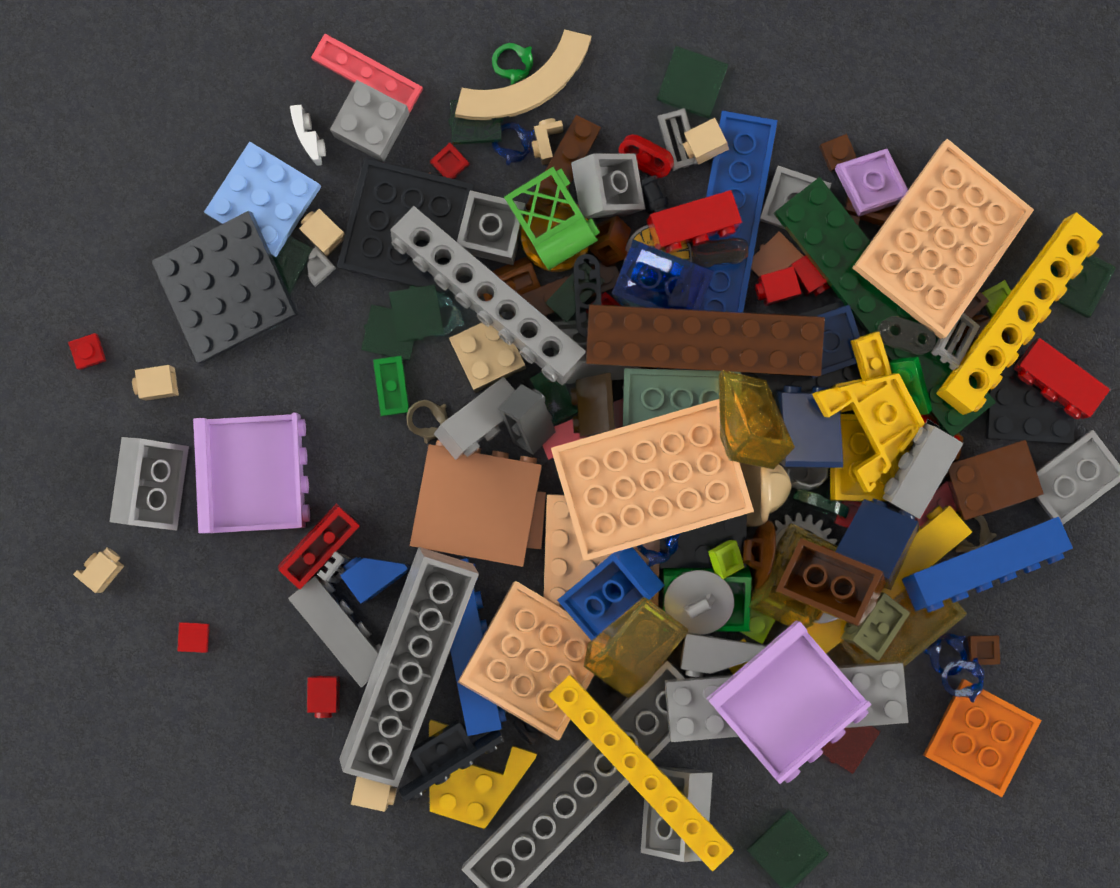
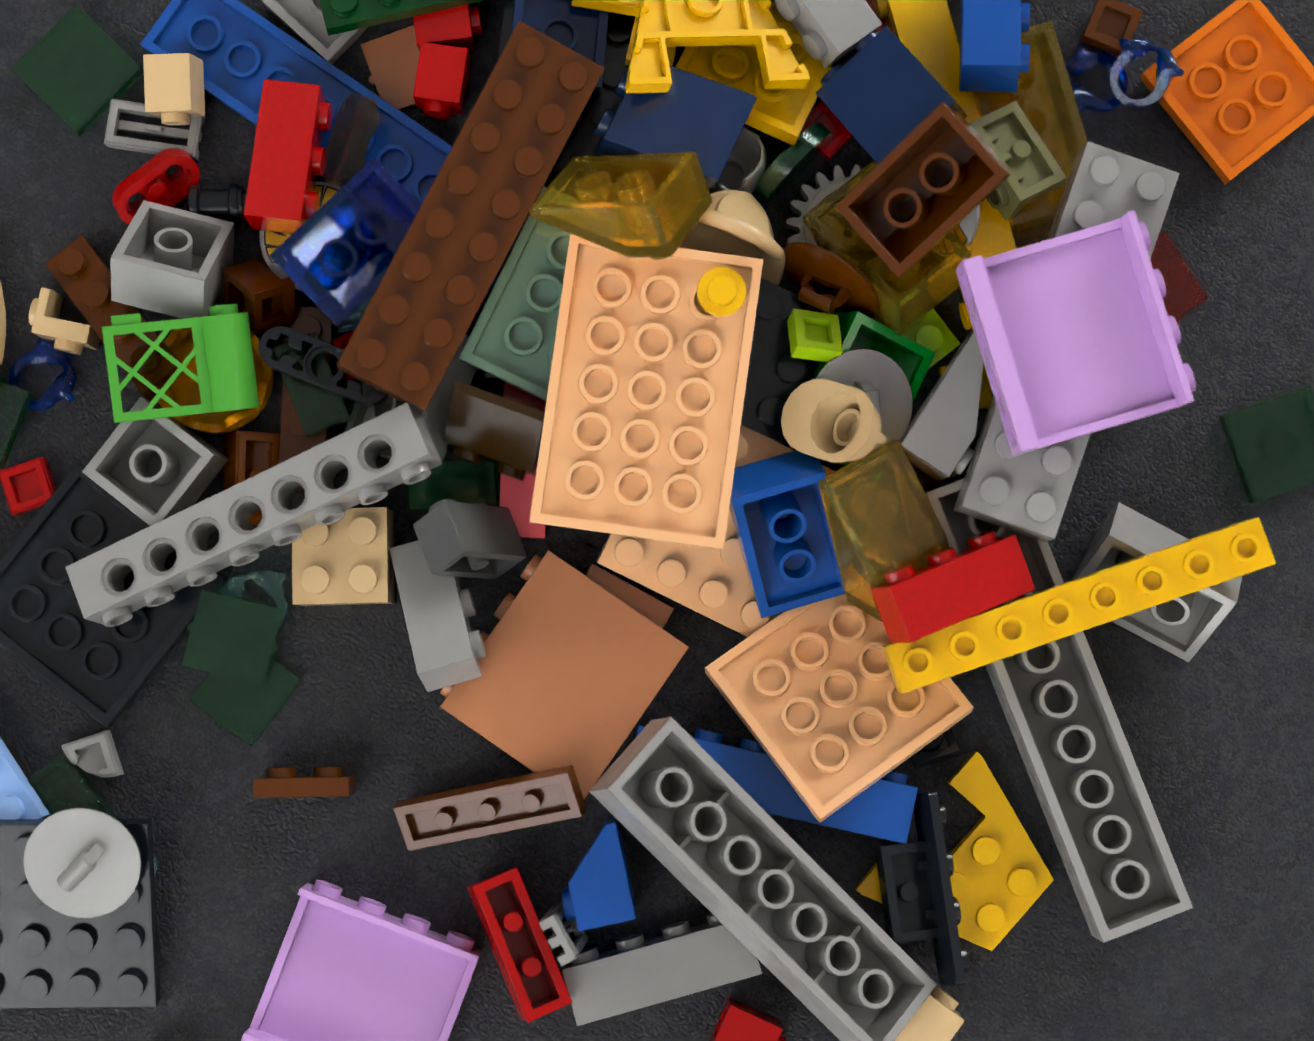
camera: 70 degrees left, 0 degrees up
(258, 289) = (82, 862): none -> light grey shield
(322, 231) = (43, 725): tan brick -> none
(359, 399) = (282, 782): none -> reddish brown plate
(385, 497) = (490, 808): none -> plate
(391, 386) = (326, 724): green plate -> none
(438, 411) = (396, 672): dark tan piece -> none
(619, 697) = (951, 586): none -> red brick
(658, 557) = (765, 440): clear blue piece -> none
(681, 589) = (831, 421): none -> tan piece
(724, 496) = (721, 291): none -> yellow plate

